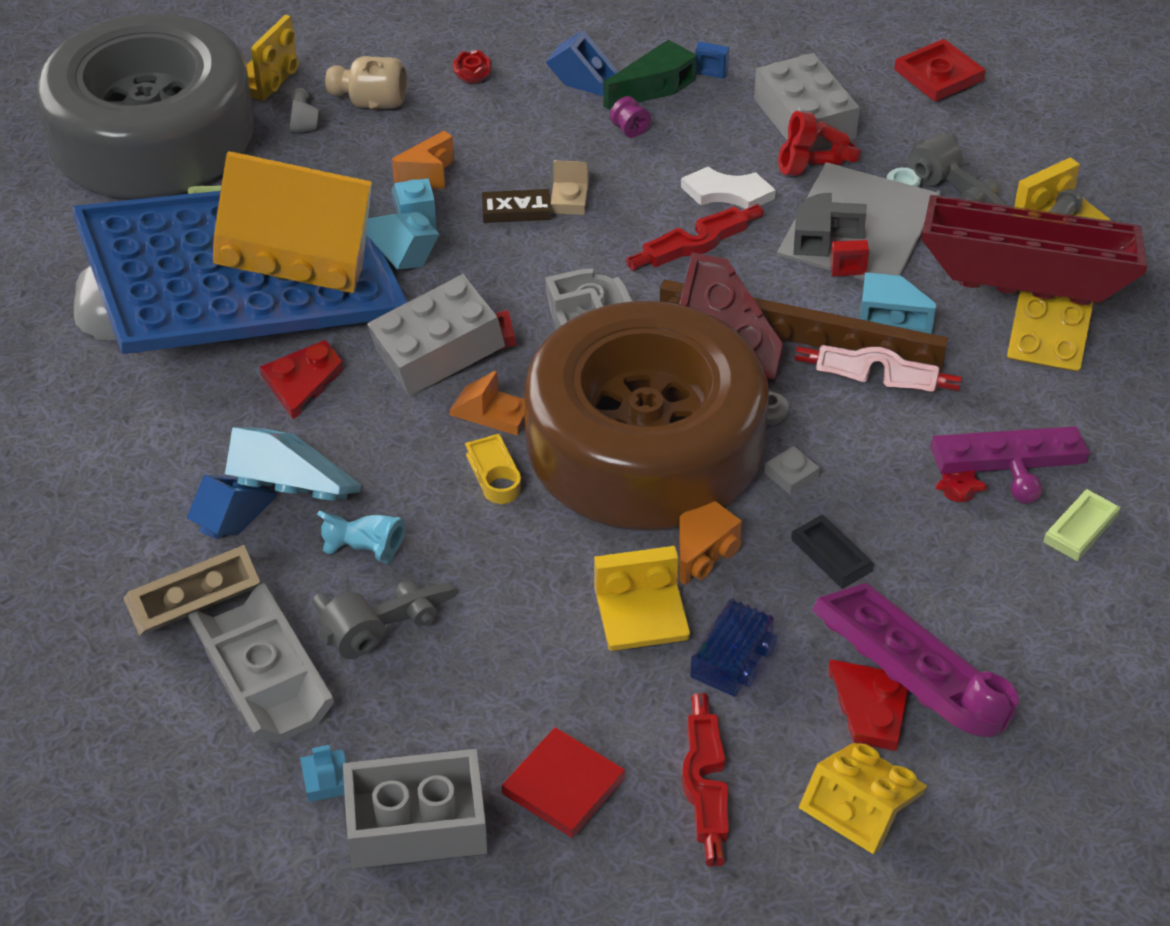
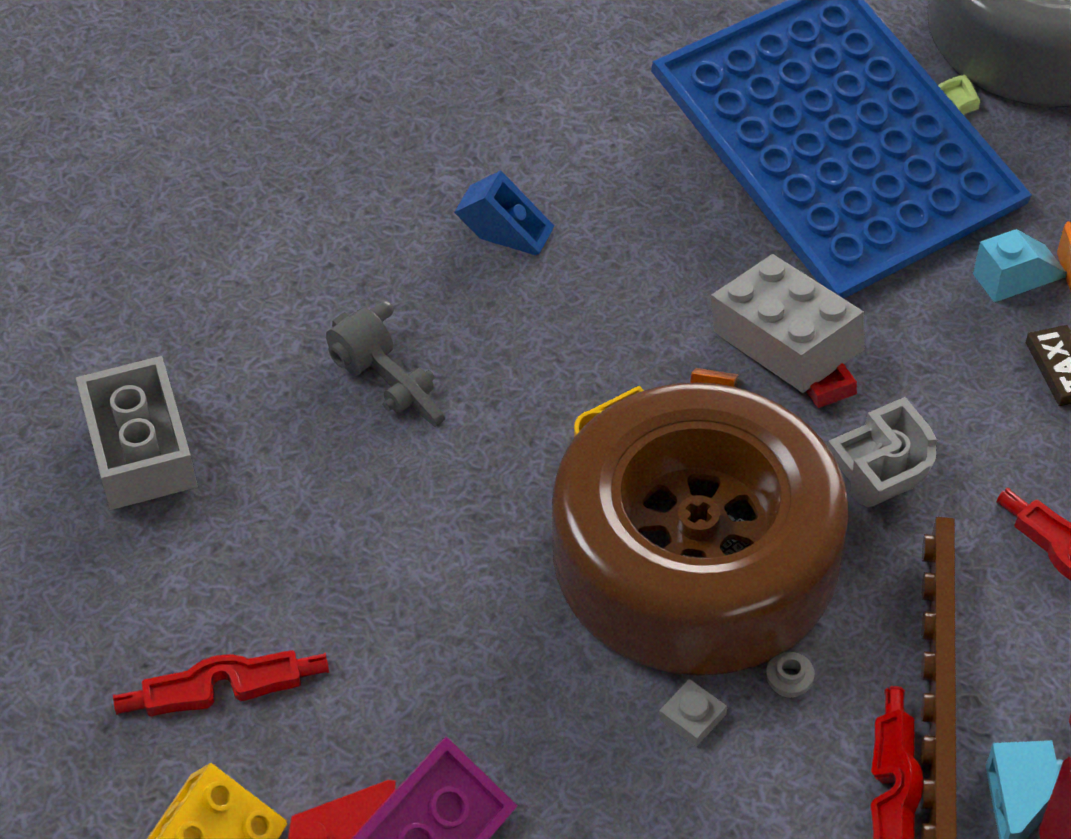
camera: 80 degrees right, 5 degrees up
(191, 590) = (375, 210): tan brick -> none
(264, 667) = (300, 284): light grey piece -> none
(283, 458) = (550, 239): medium azure slope -> none
(291, 222) = (860, 142): light orange slope -> none
(302, 375) = (710, 233): red wing -> none
(323, 773) = (188, 367): dark azure tile -> none
(373, 532) = (485, 331): medium azure animal -> none
(403, 238) = (940, 261): medium azure slope -> none
(563, 782) = (193, 553): red tile -> none
(640, 598) = (441, 584): yellow bracket -> none
(705, 538) = (556, 627): orange slope -> none
(718, 291) = (897, 591): dark red plate -> none
(733, 647) = (390, 679): clear blue brick -> none
(832, 551) = (570, 770): black tile -> none

